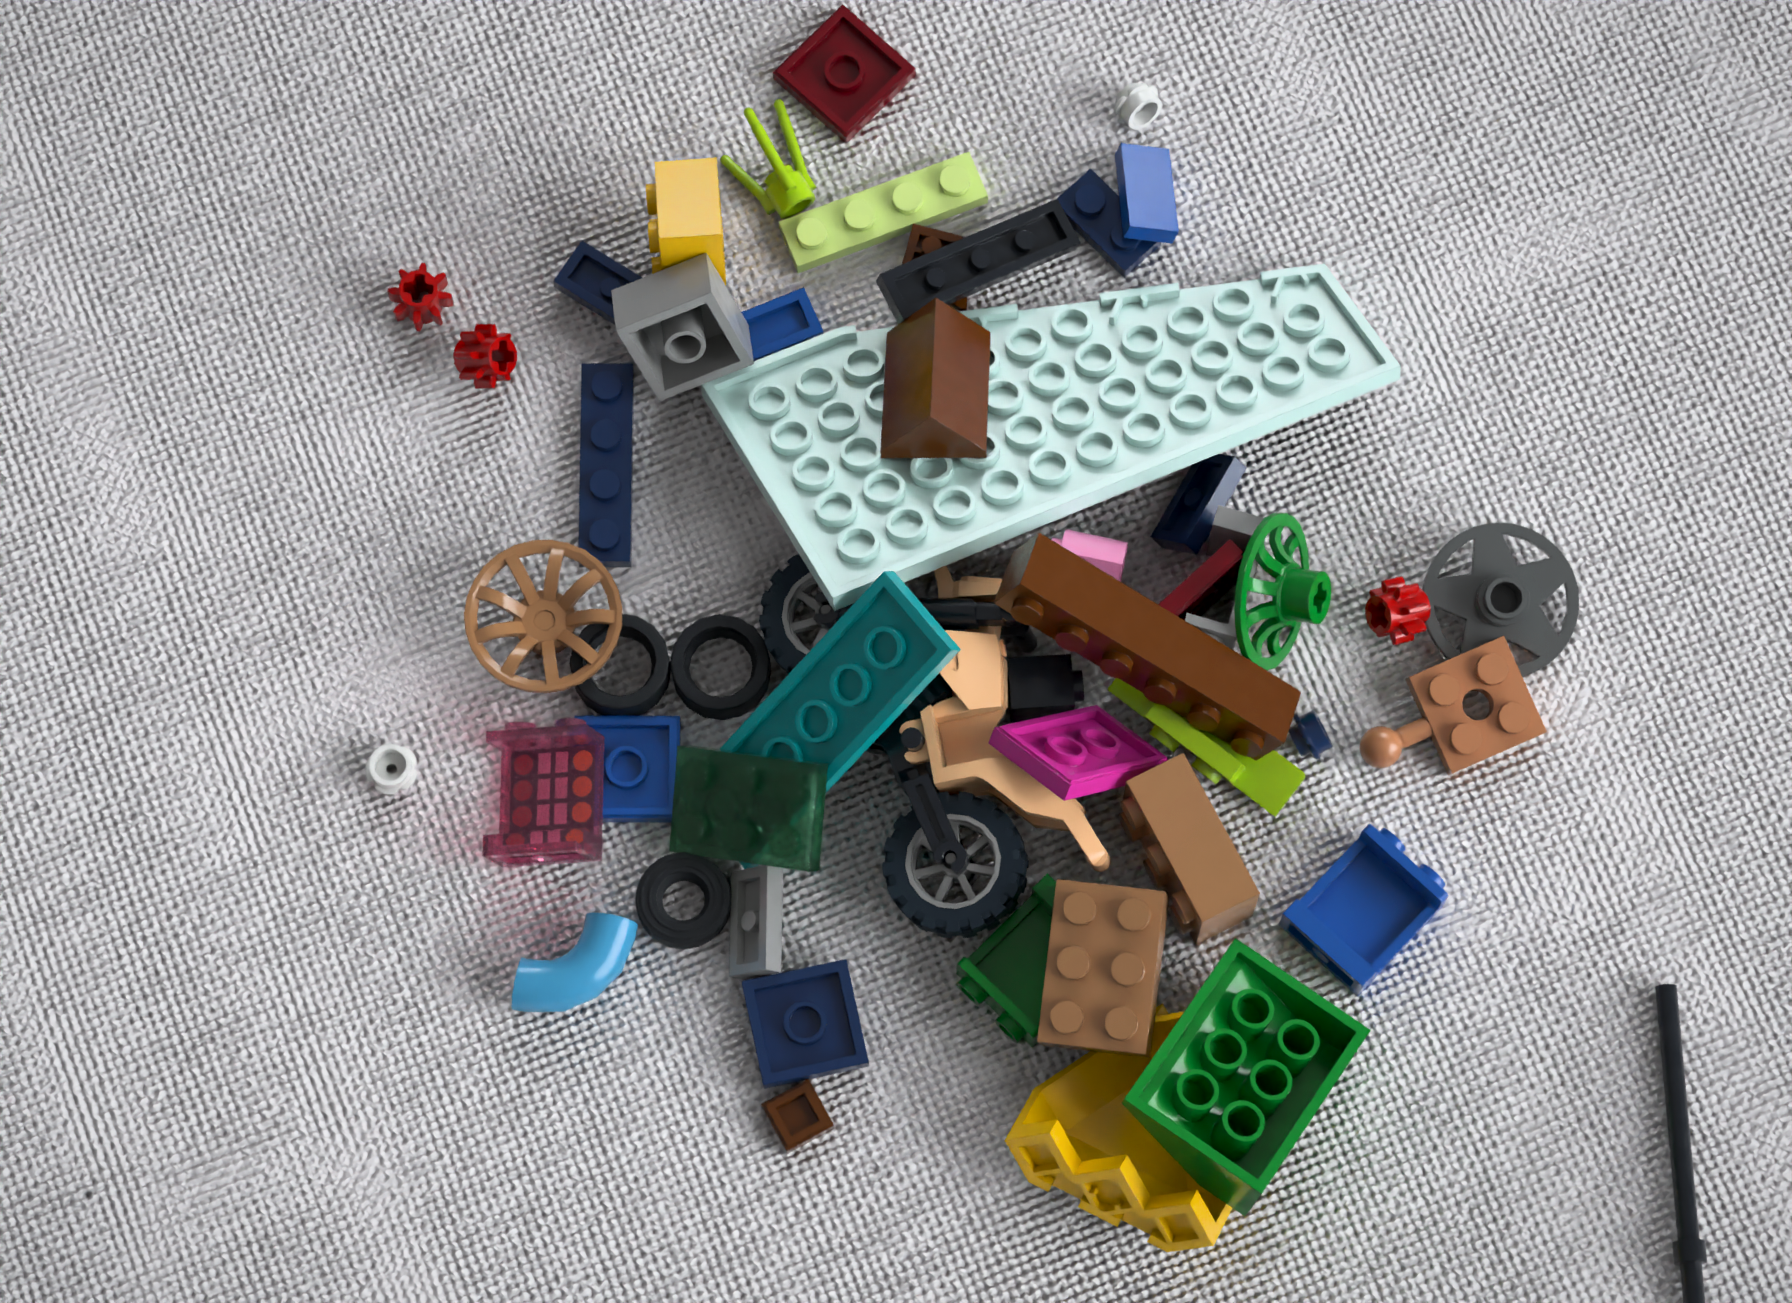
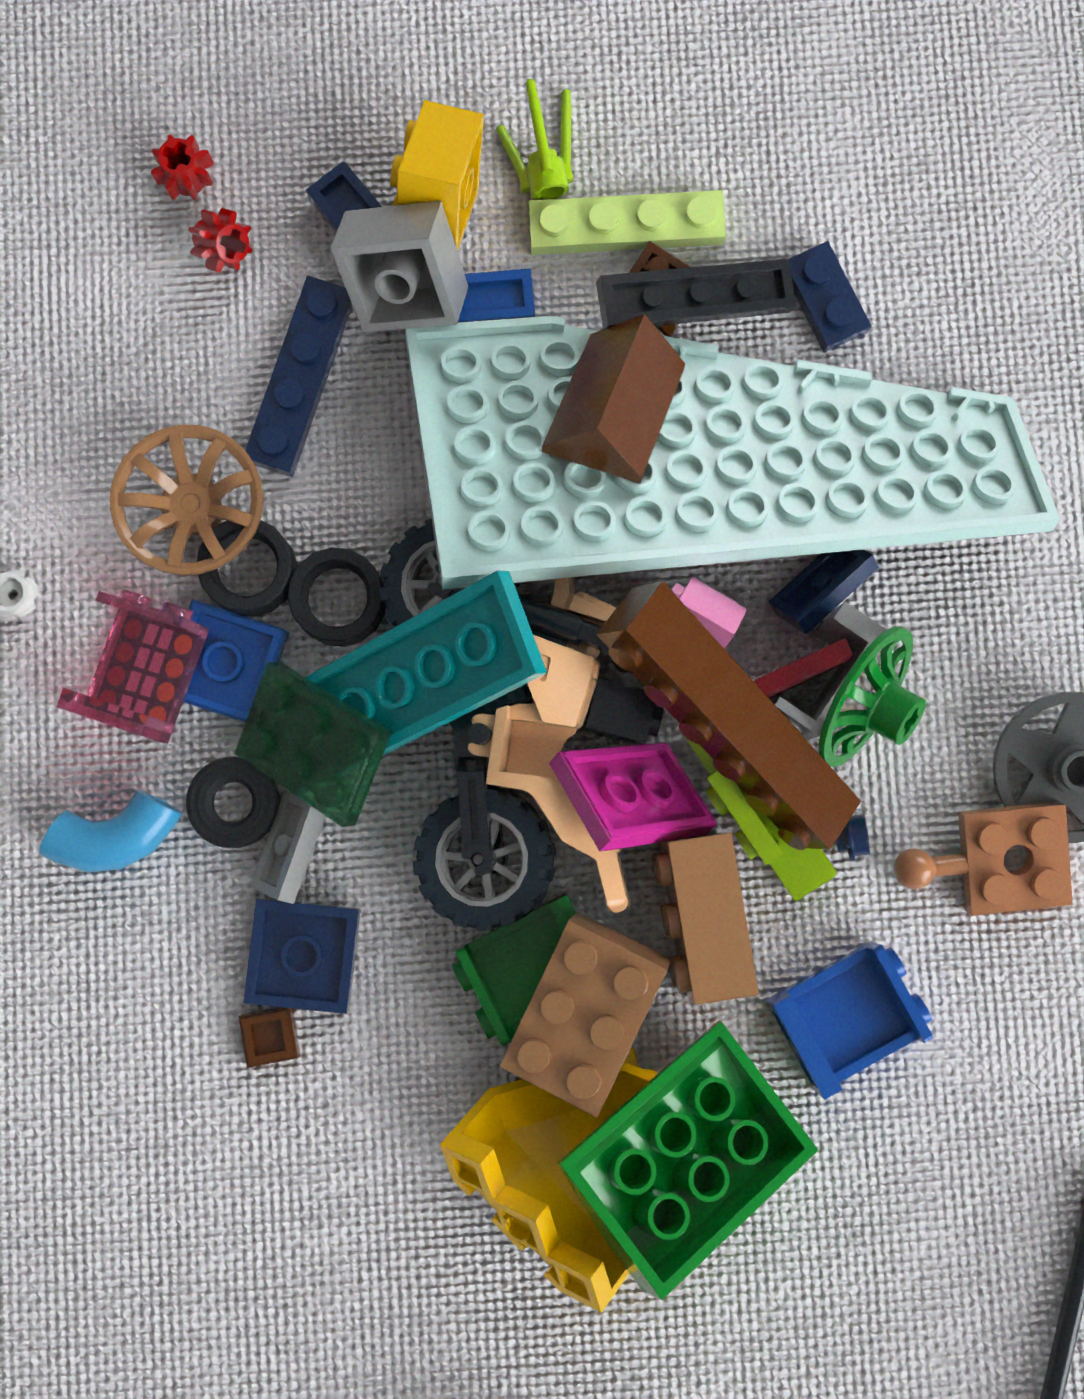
camera: 15 degrees right, 10 degrees up
(844, 73) = (634, 83): dark red tile -> none
(1137, 105) = (890, 195): white plate -> none
(1146, 193) = (872, 280): tile -> none
(1397, 610) = (974, 747): red gear -> none

